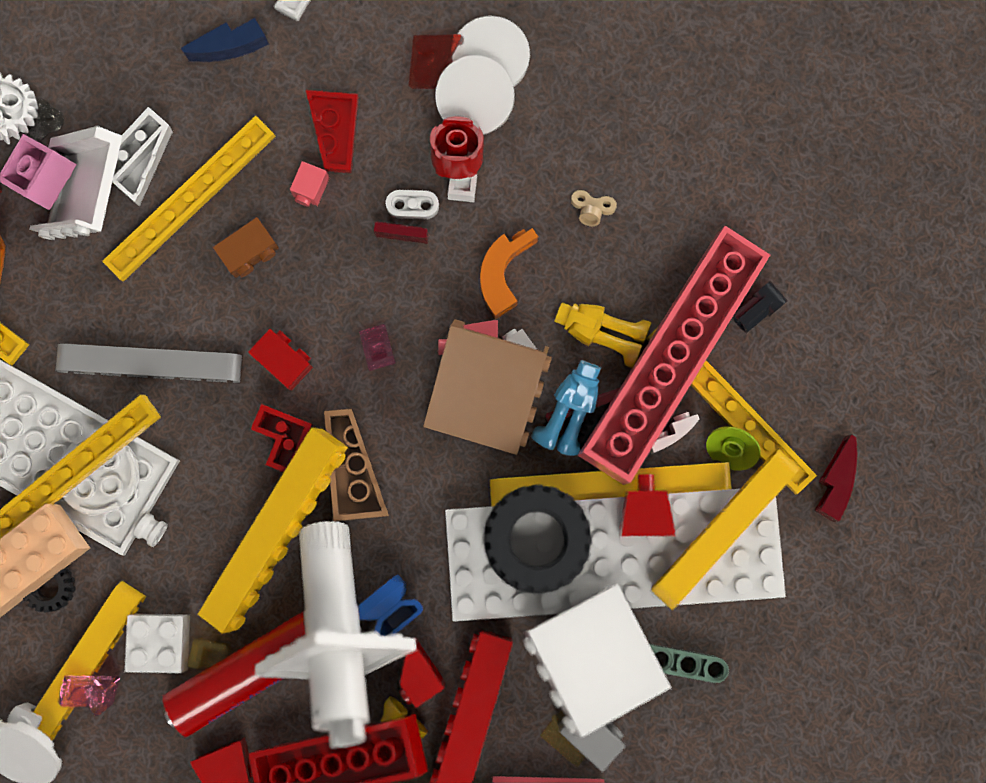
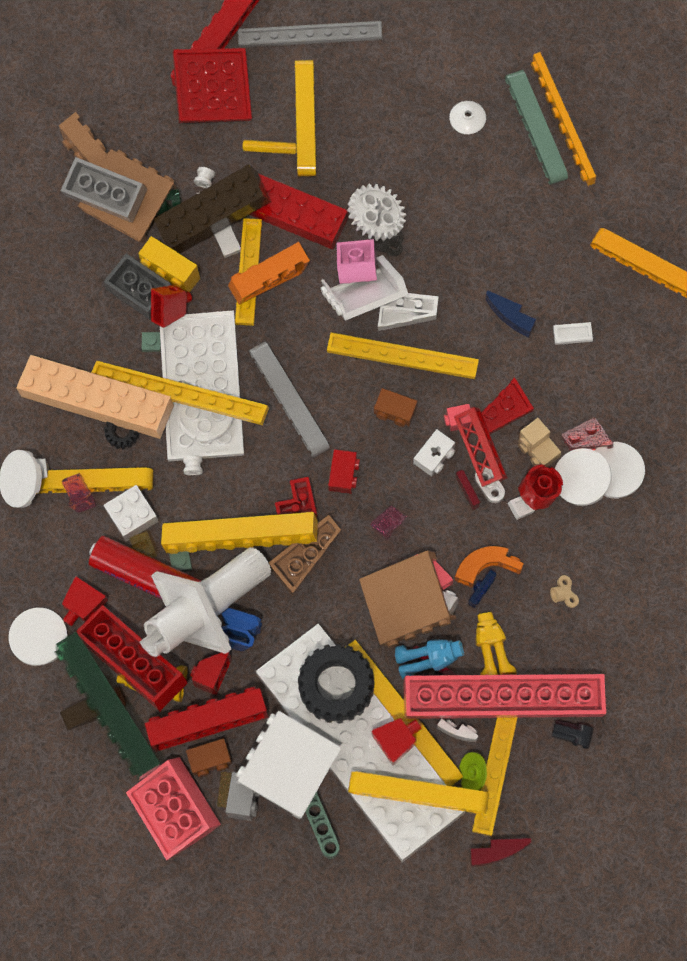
camera: 60 degrees right, 10 degrees down
(258, 620) = (181, 561): none -> sand green plate
(325, 226) = (437, 442): none -> white brick
(364, 173) = (487, 444): none -> red fence
(403, 117) = (536, 442): none -> tan brick
(516, 741) = (209, 757): none -> dark orange brick
(527, 295) = (481, 588): none -> clear blue plate

